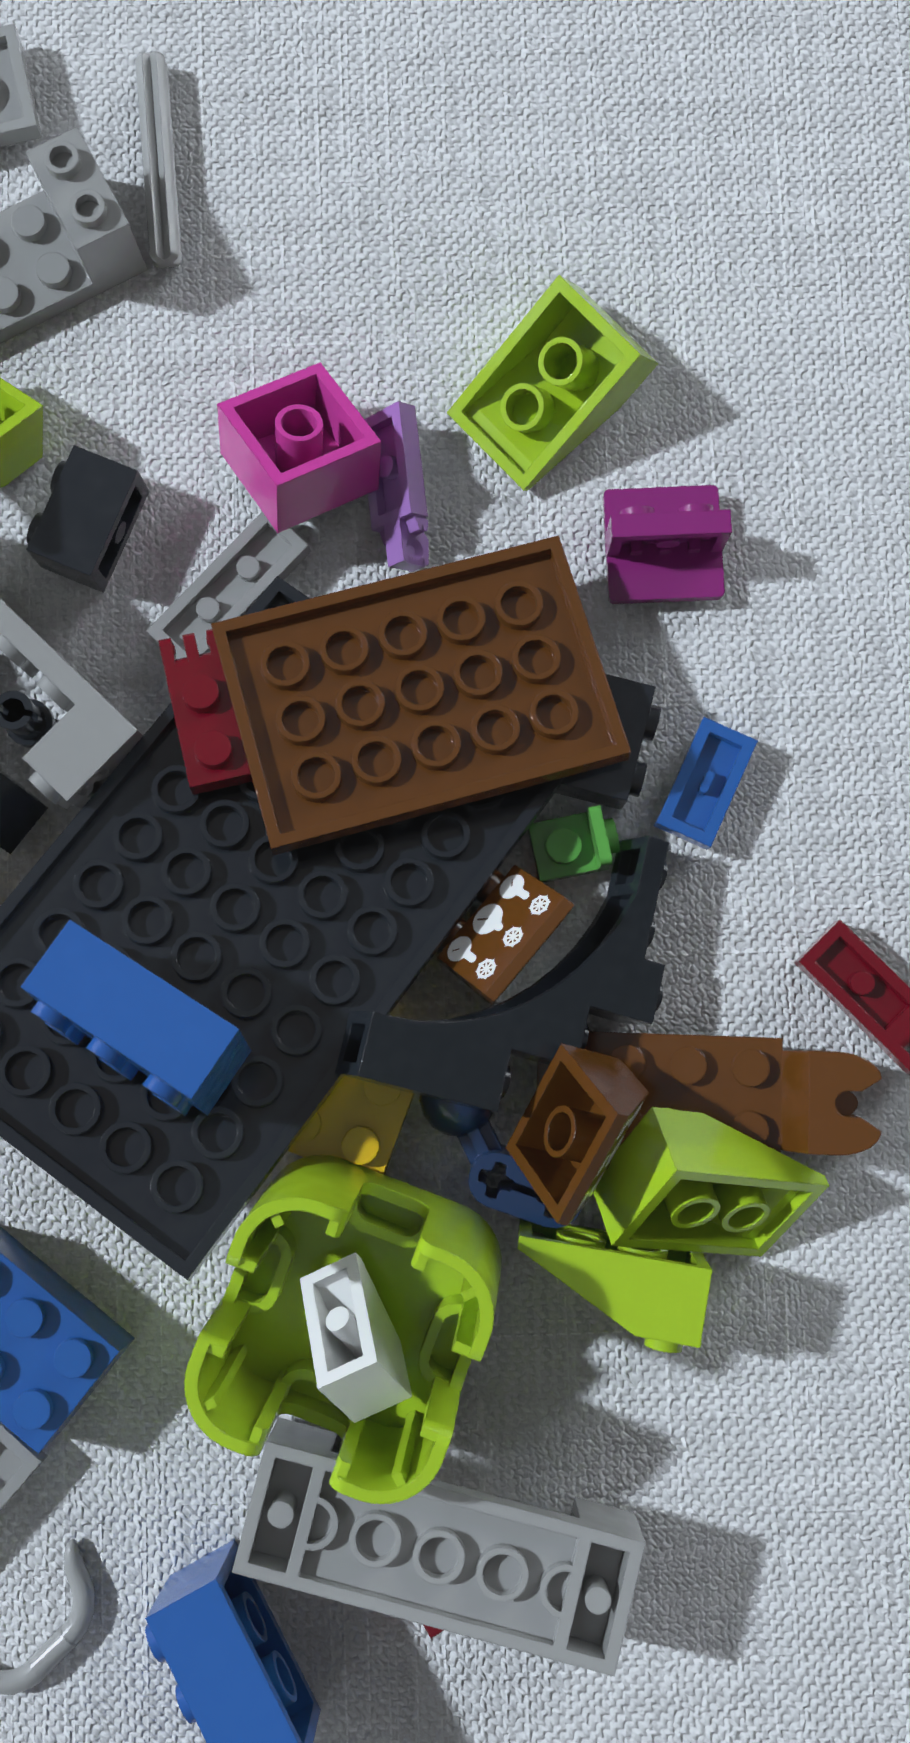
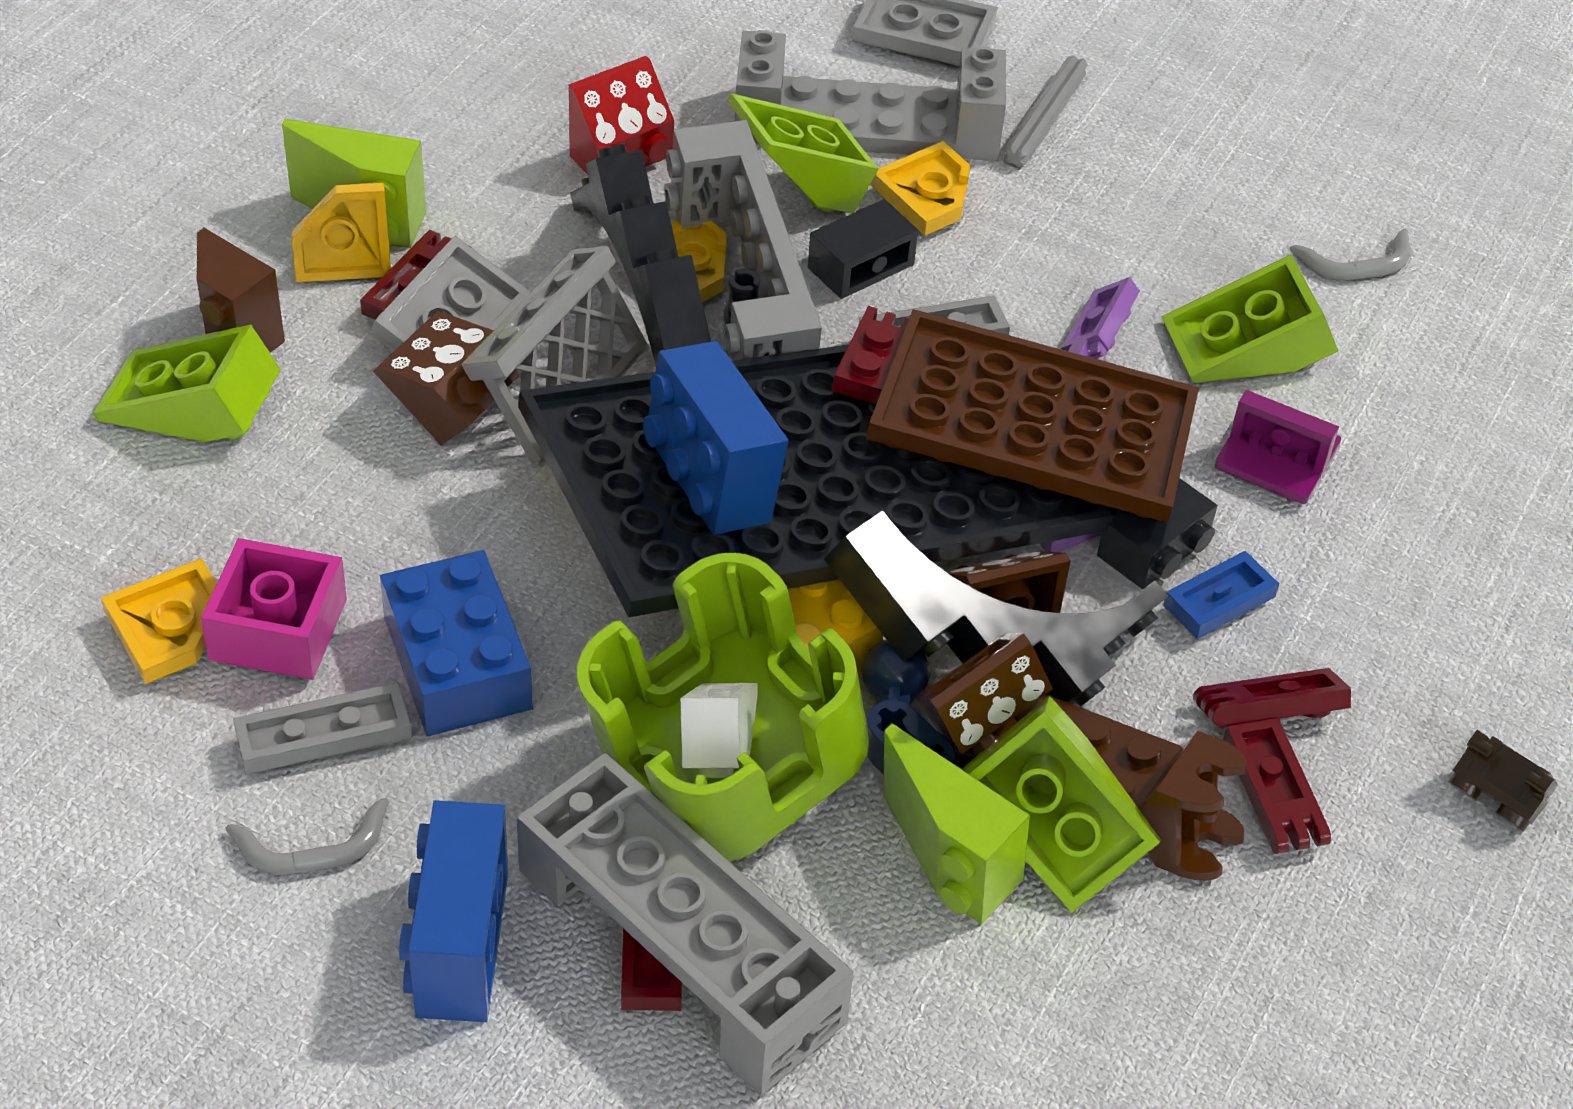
camera: 25 degrees right, 35 degrees down
(100, 372) = (926, 186): none -> yellow plate
(299, 446) = (1041, 267): dark pink brick -> none
(573, 845) = (1096, 585): bright green bracket -> none
(618, 203) = (1358, 269): none -> light grey animal
(821, 891) = (1278, 696): none -> dark red hinge

